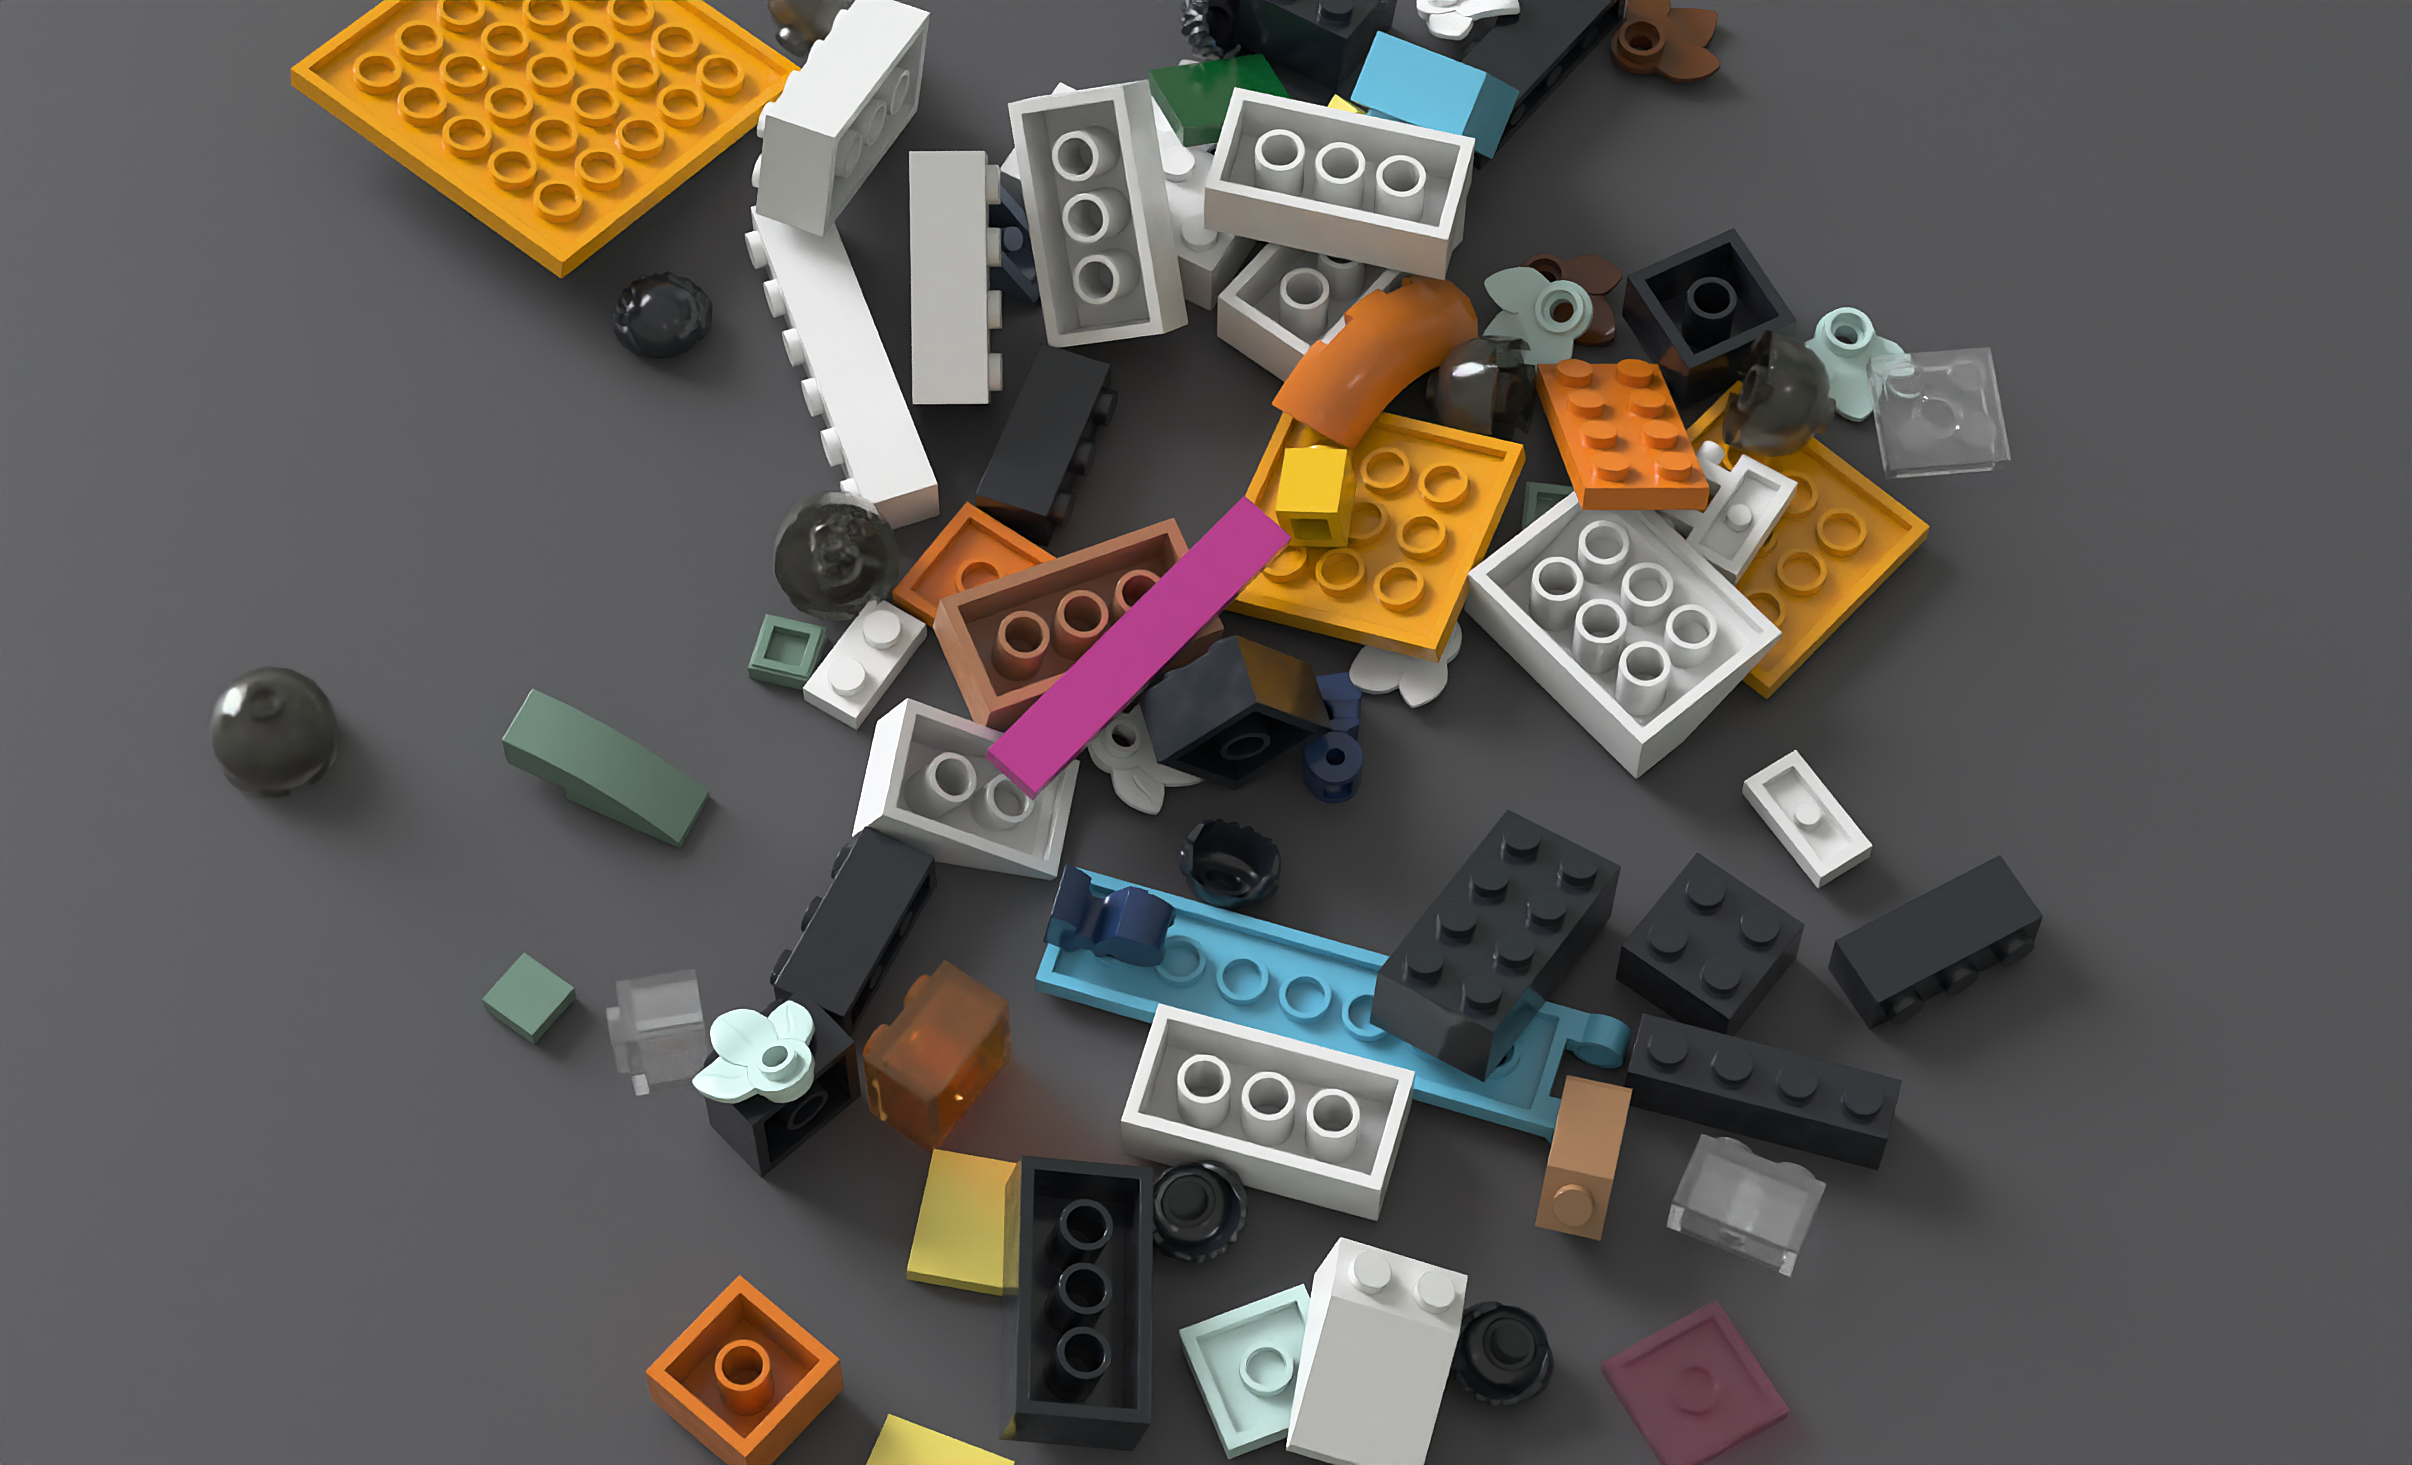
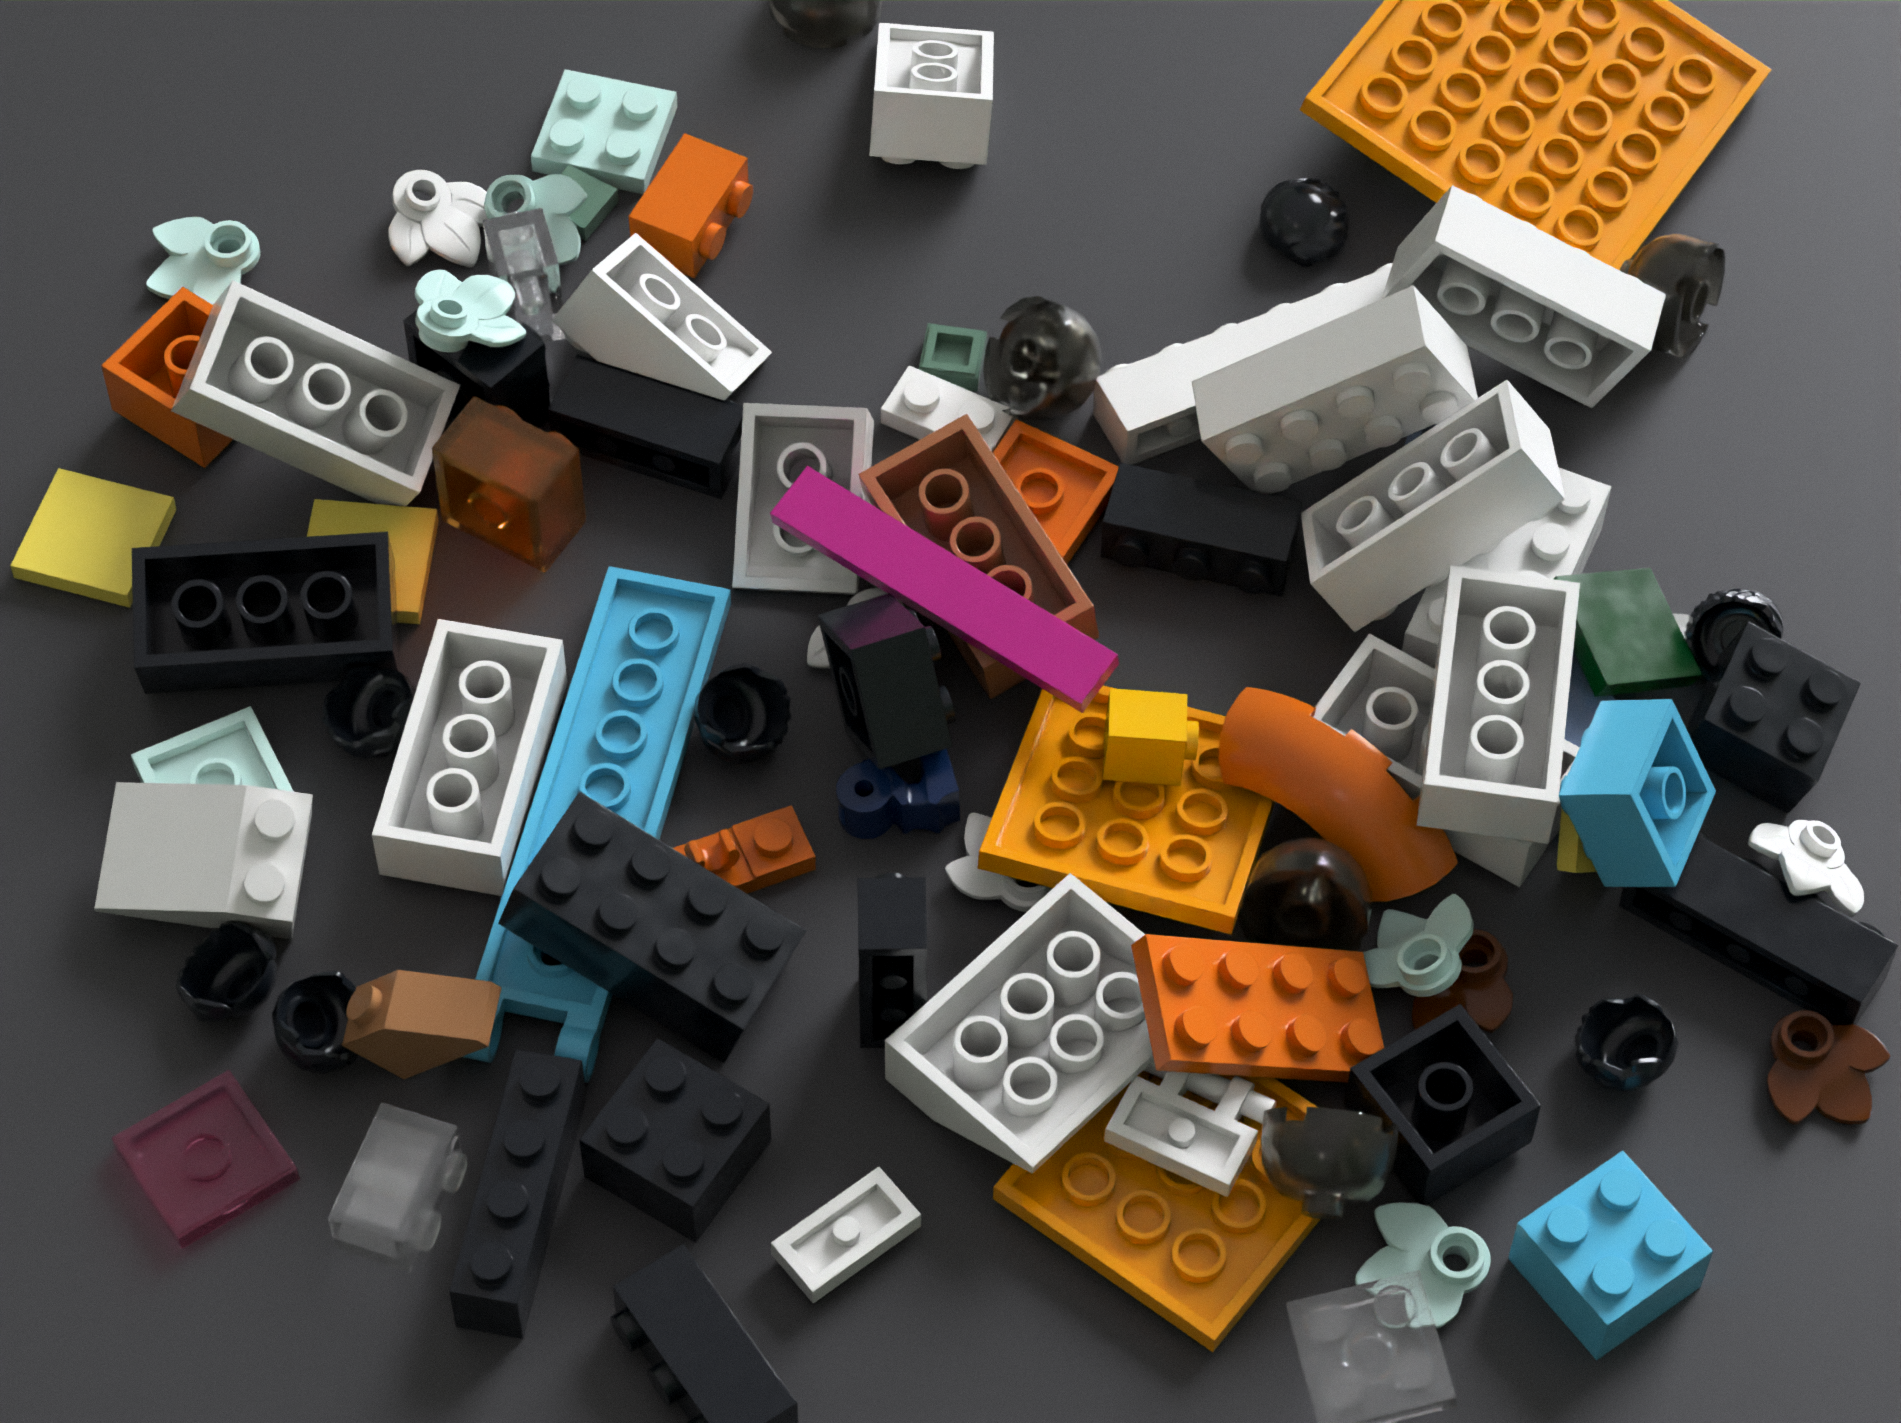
camera: 85 degrees right, 5 degrees down
(430, 967) = (605, 130): none -> light aqua plate
(441, 632) = (932, 95): none -> white slope
(540, 1132) = (443, 224): none -> white plate
(556, 1397) = (202, 257): none -> light aqua plate
(564, 877) = (692, 203): none -> orange brick
(566, 1035) = (553, 193): none -> light aqua plate
(603, 769) = (804, 221): sand green slope -> none
(742, 907) = (658, 324): none -> white slope
(825, 1230) = (315, 397): none -> white brick
(1124, 924) = (665, 585): dark blue leg -> none
(1379, 882) = (755, 851): none -> orange plate
(1559, 727) = (890, 954): none -> black brick
(1562, 1269) = (313, 1022): none -> black hair
(1645, 172) = (1626, 1043): none -> black hair
(1854, 215) = (1609, 1254): none -> medium azure brick

